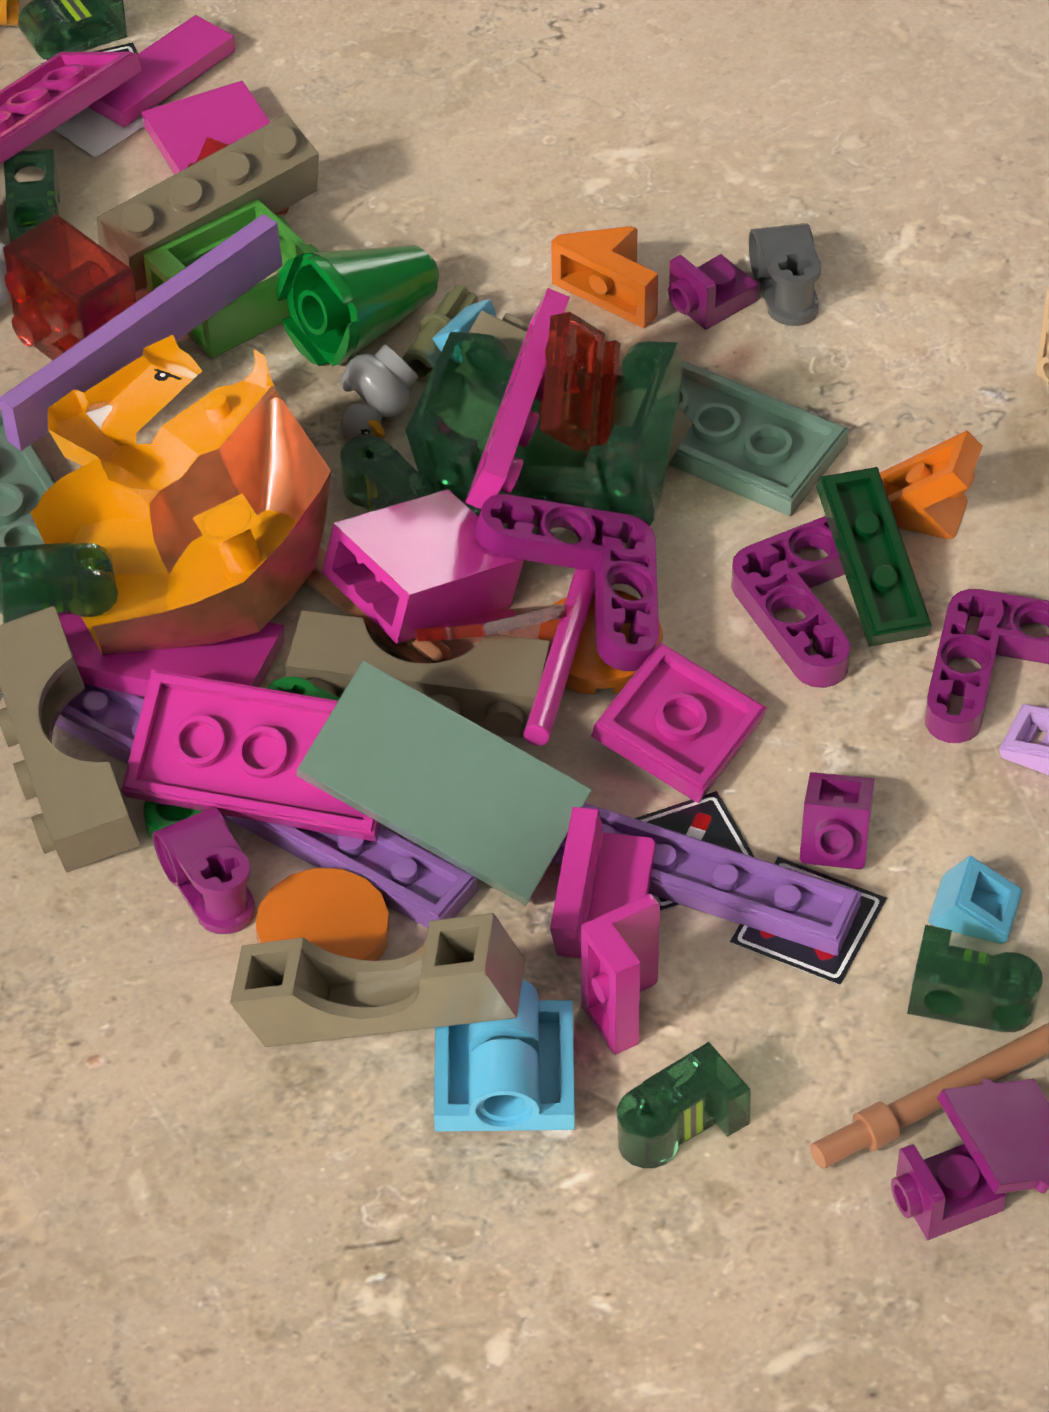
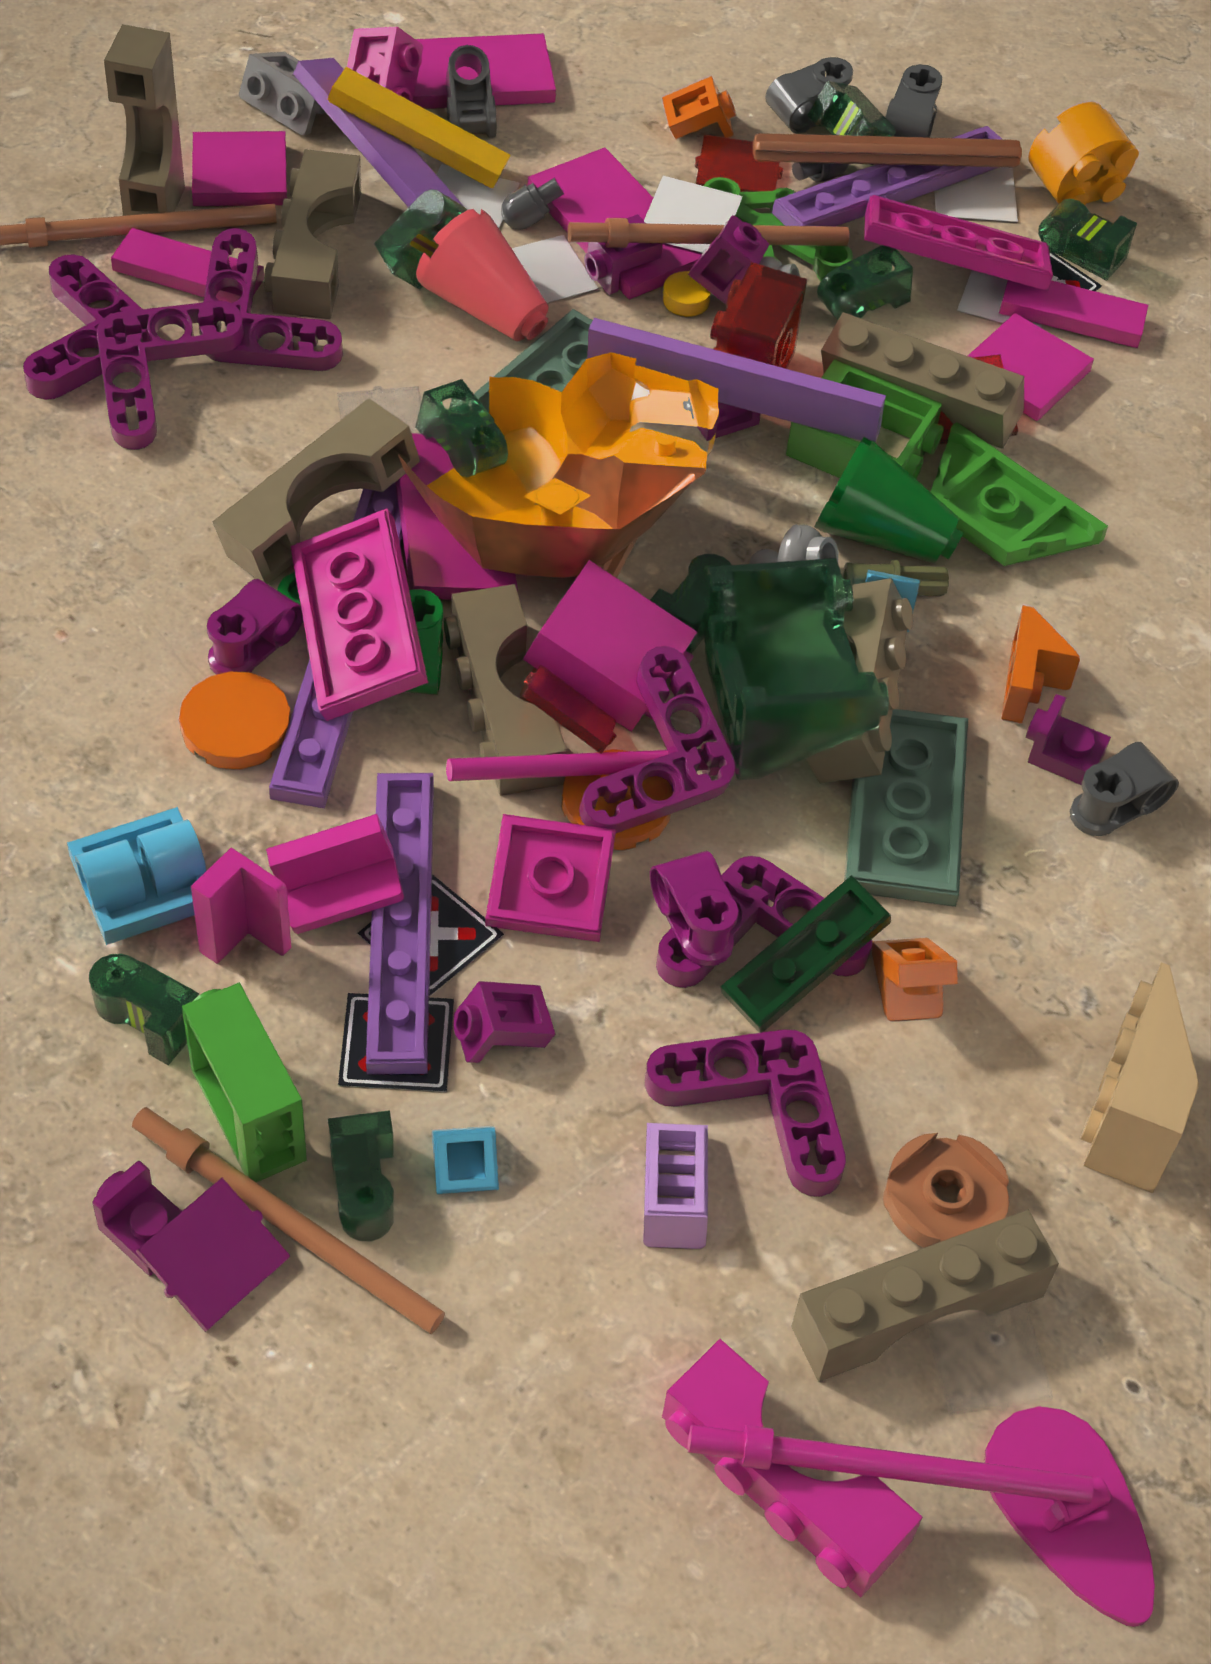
camera: 60 degrees right, 5 degrees up
(306, 994) = (148, 753): dark tan arch -> none
(404, 208) = (1006, 506): none -> bright green wing
(443, 782) = (375, 724): sand green tile -> none
(514, 419) = (769, 630): dark pink plate -> none
(579, 383) = (819, 653): clear red plate -> none
(786, 606) = (696, 906): none -> magenta piece
(842, 1063) = (245, 1082): none -> bright green window

